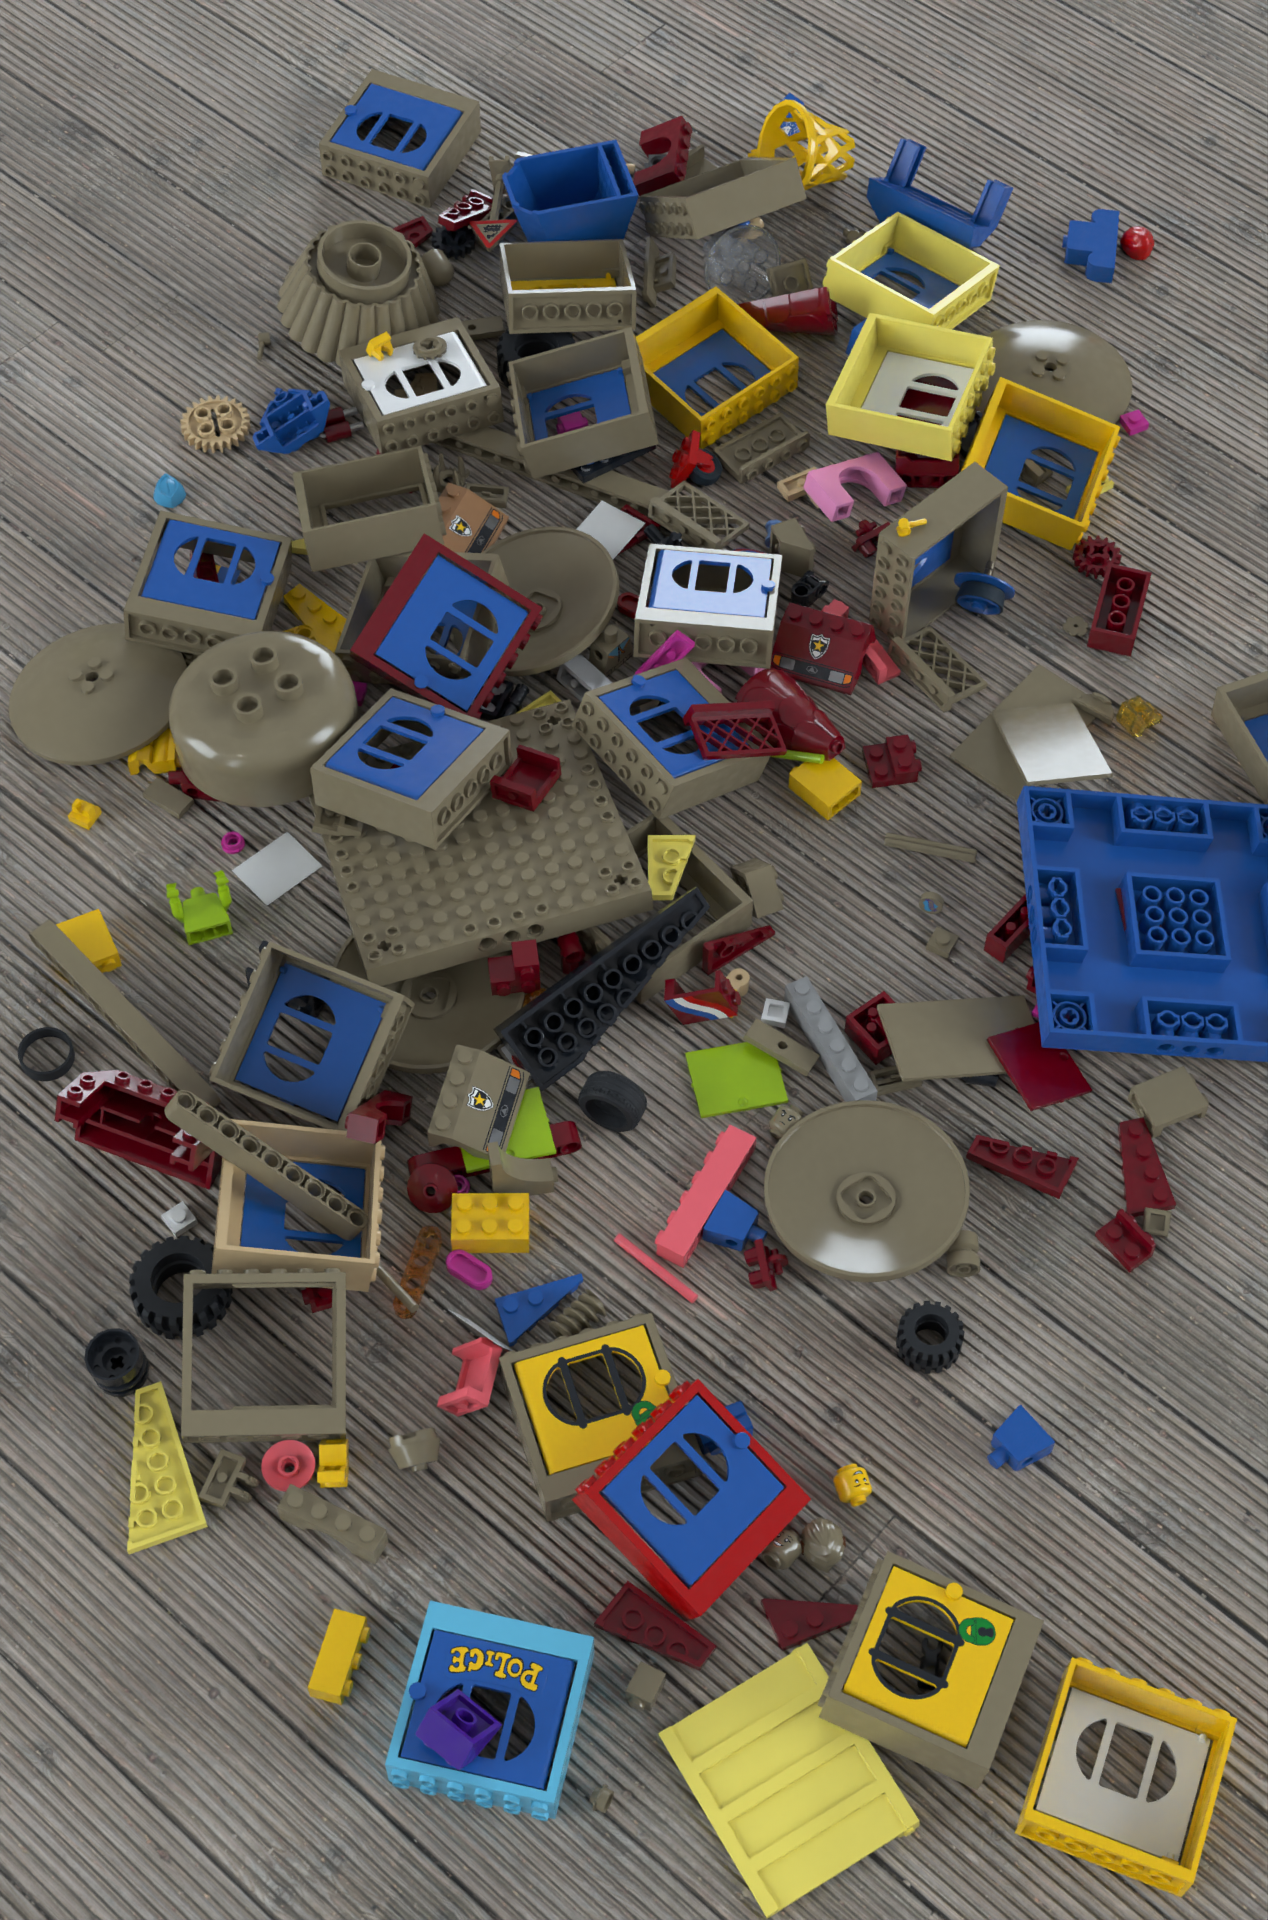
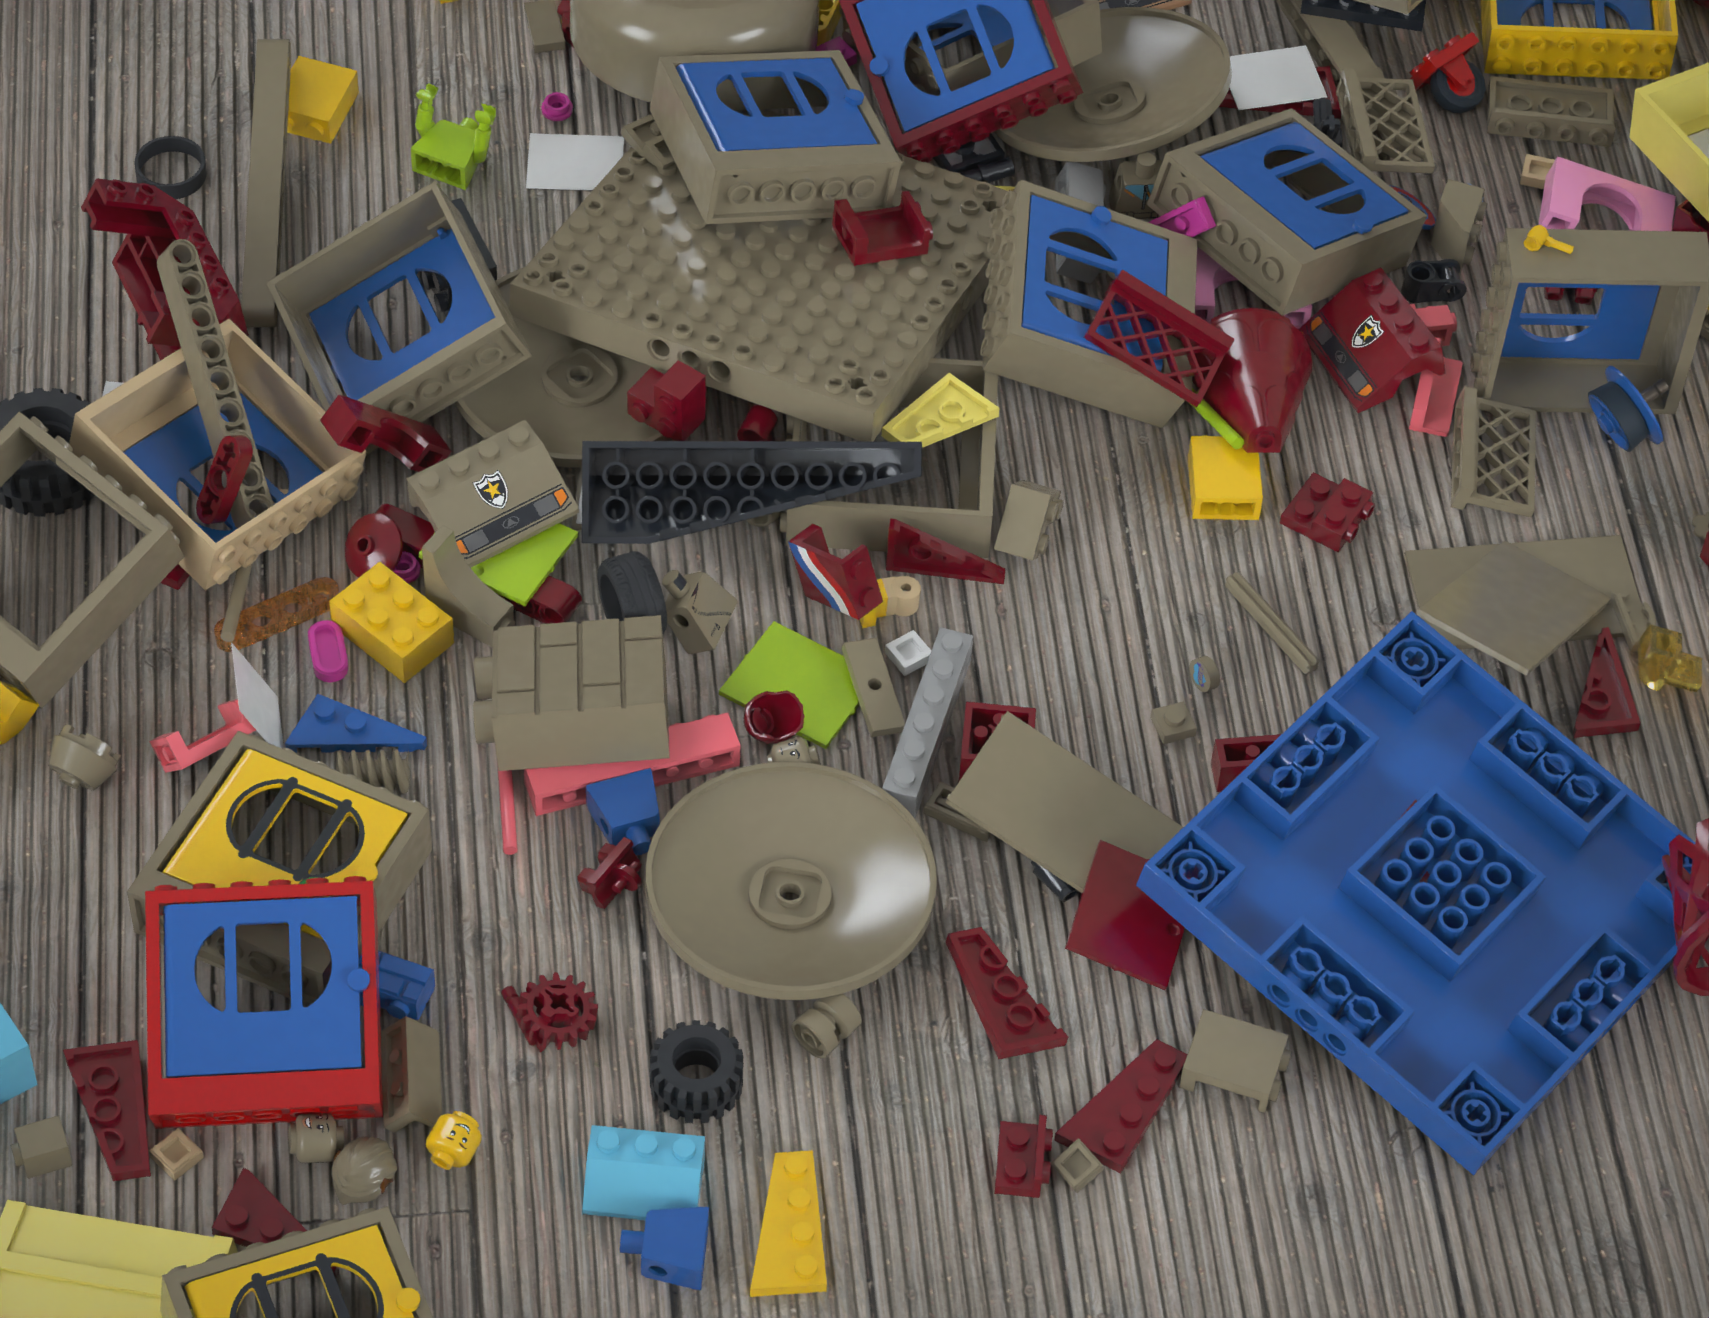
camera: 40 degrees right, 5 degrees down
(332, 1208) = (232, 458): none -> dark red beam
(649, 1180) = (574, 694): none -> dark tan brick
(652, 1078) = (697, 609): none -> dark tan torso
(715, 1624) = (176, 1154): none -> tan tile
(753, 1106) = (773, 716): none -> dark red hair
(797, 1468) = (410, 1074): none -> dark tan panel
(805, 1386) = (512, 999): none -> dark red wheel
(823, 1366) = (557, 1011): none -> dark red gear
(963, 1416) = (641, 1172): none -> medium azure slope
(1067, 1385) = (791, 1235): none -> yellow wing
(1127, 760) = (1606, 699): none -> dark red wing

